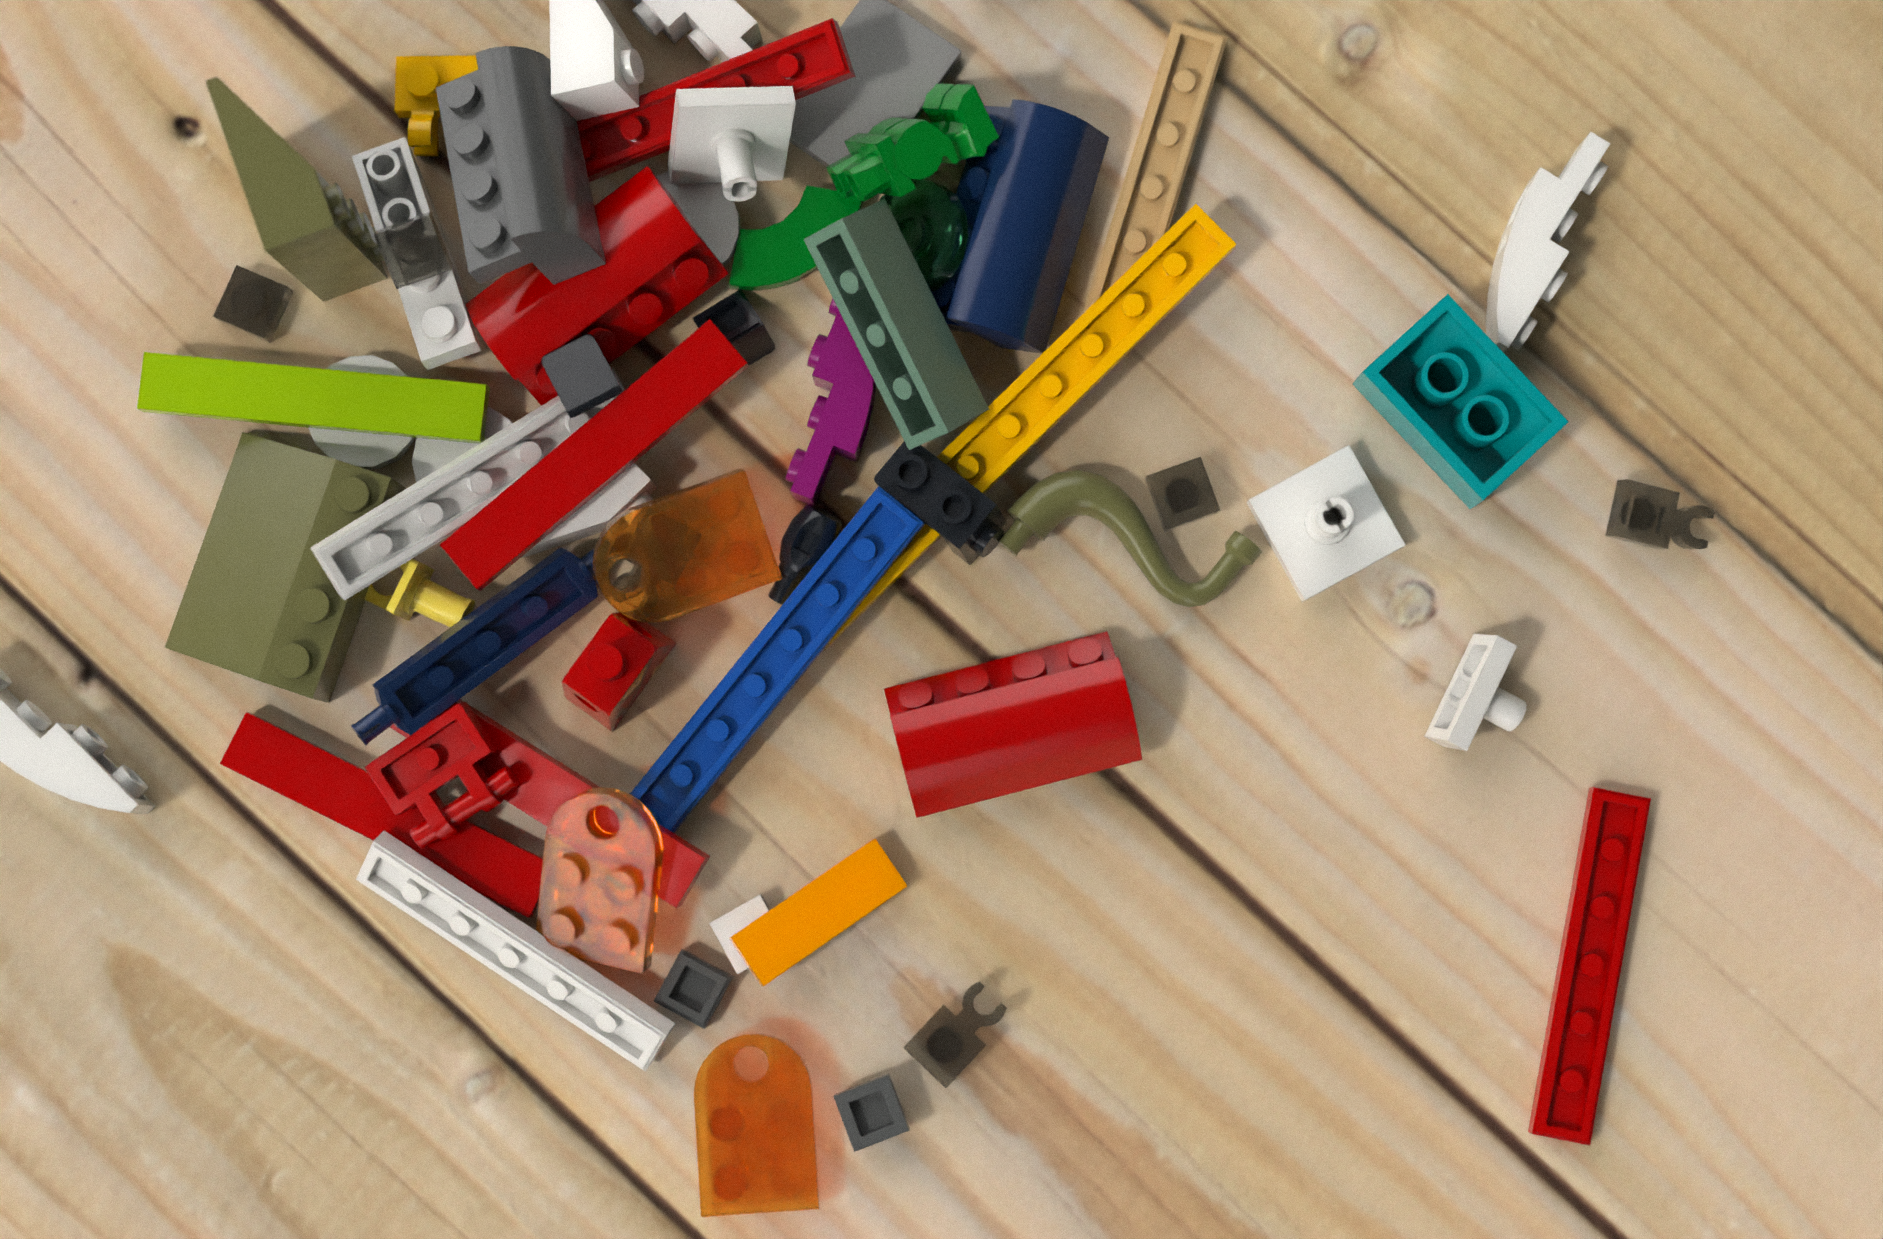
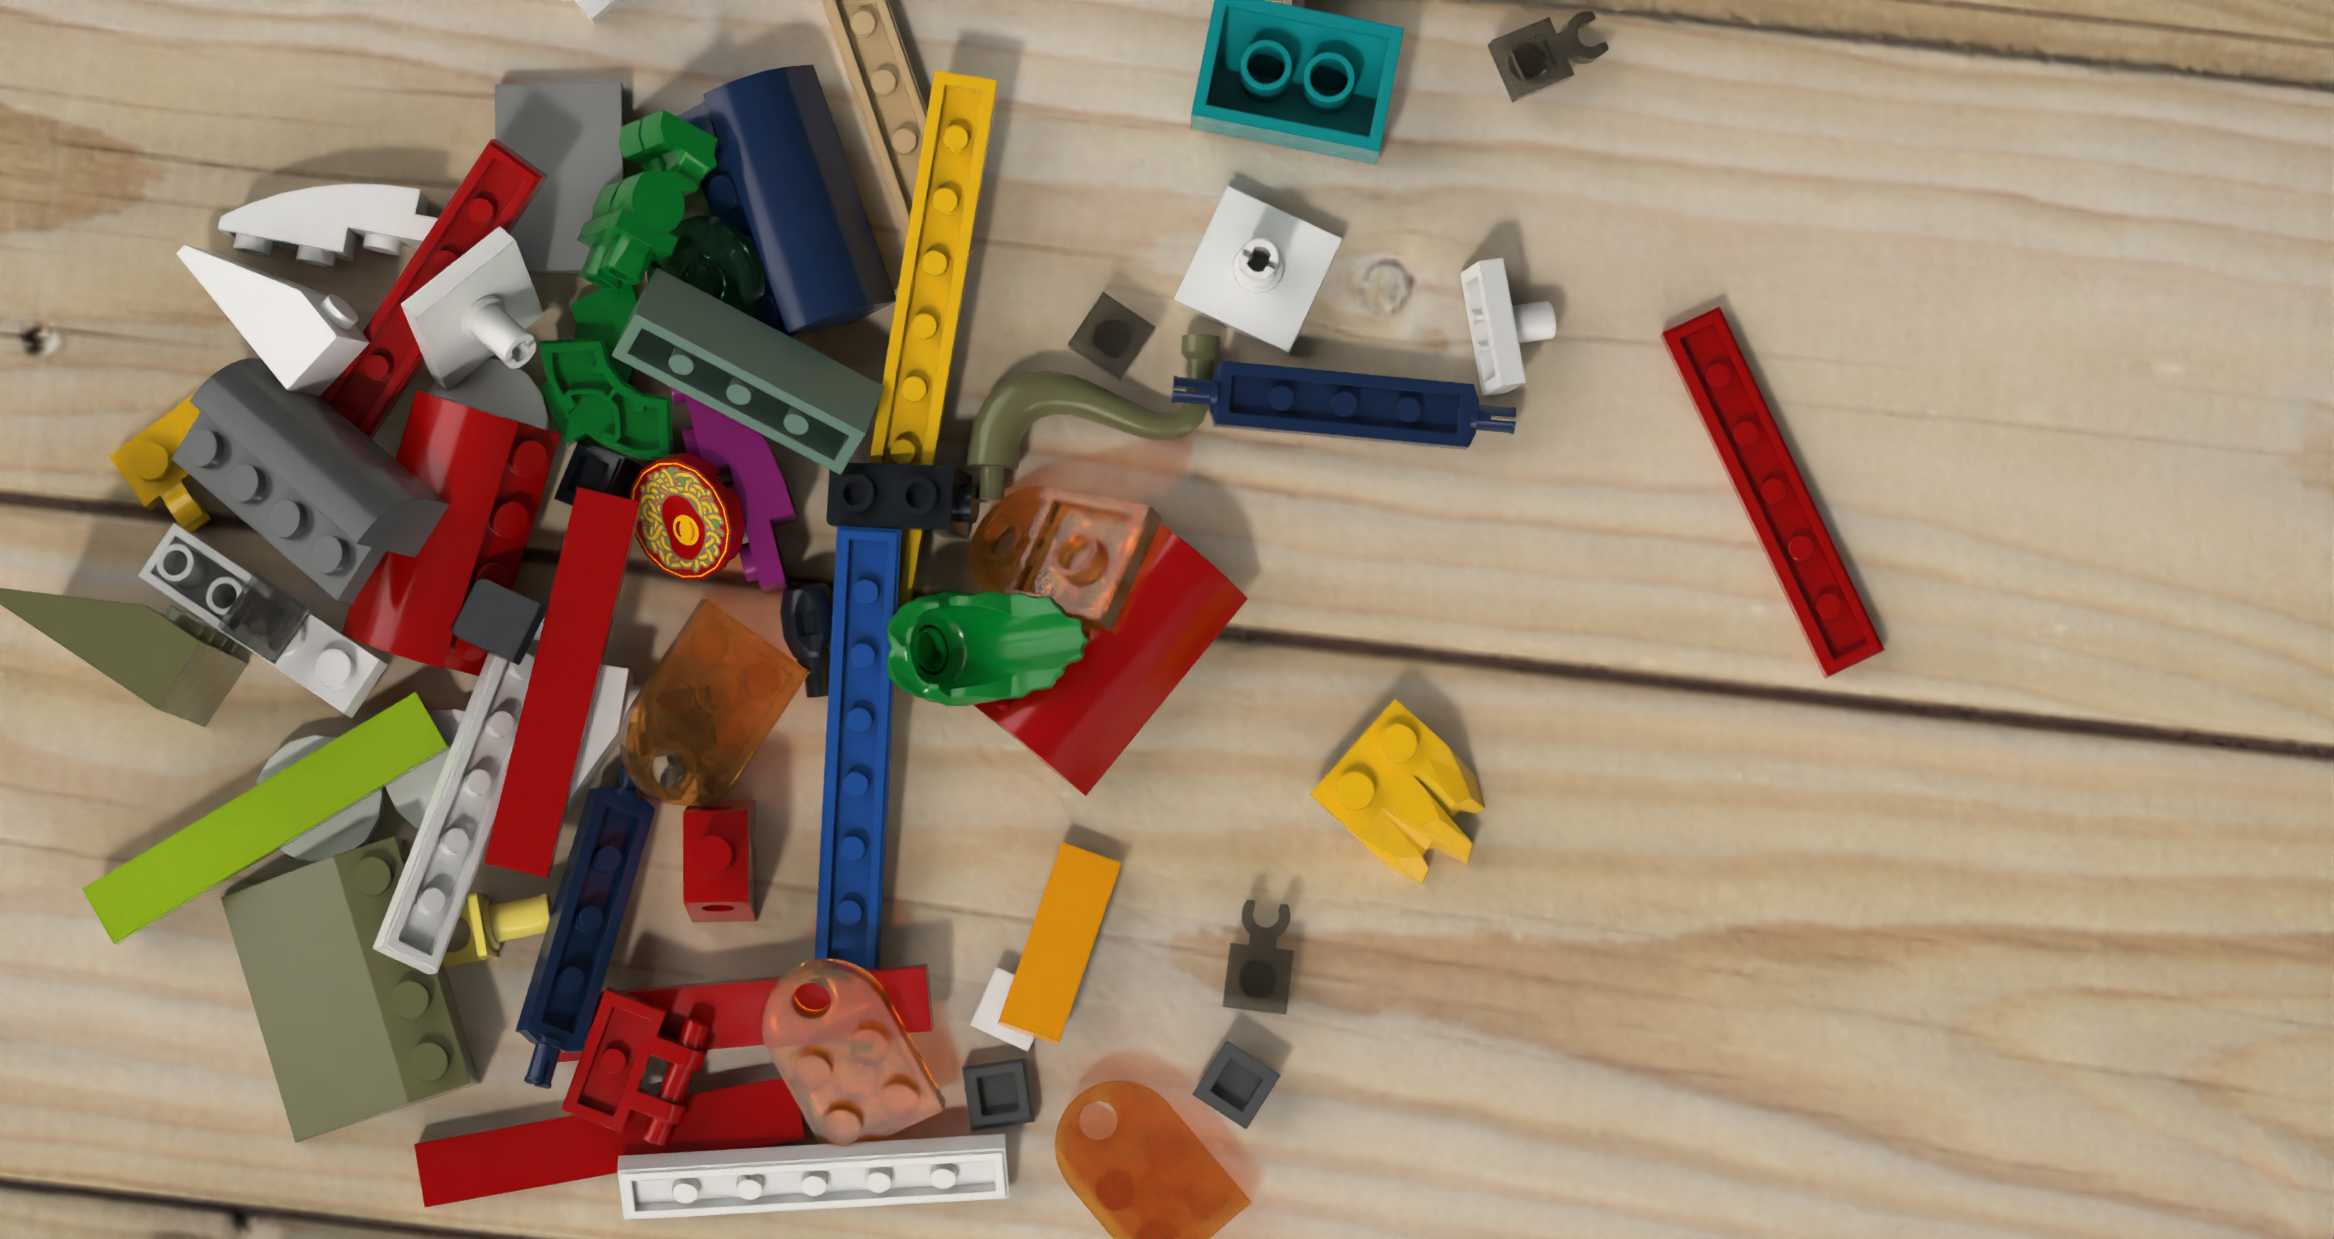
camera: 40 degrees left, 0 degrees up
(253, 303) = (144, 775): clear smoke plate -> none
(775, 400) = (687, 517): none -> tile
(777, 274) = (605, 404): none -> green tile
(919, 652) = (981, 646): none -> green hair
(1033, 632) = (1066, 548): none -> clear orange plate
(1150, 986) = (1402, 793): none -> yellow plate
(1318, 669) = (1343, 405): none -> dark blue plate

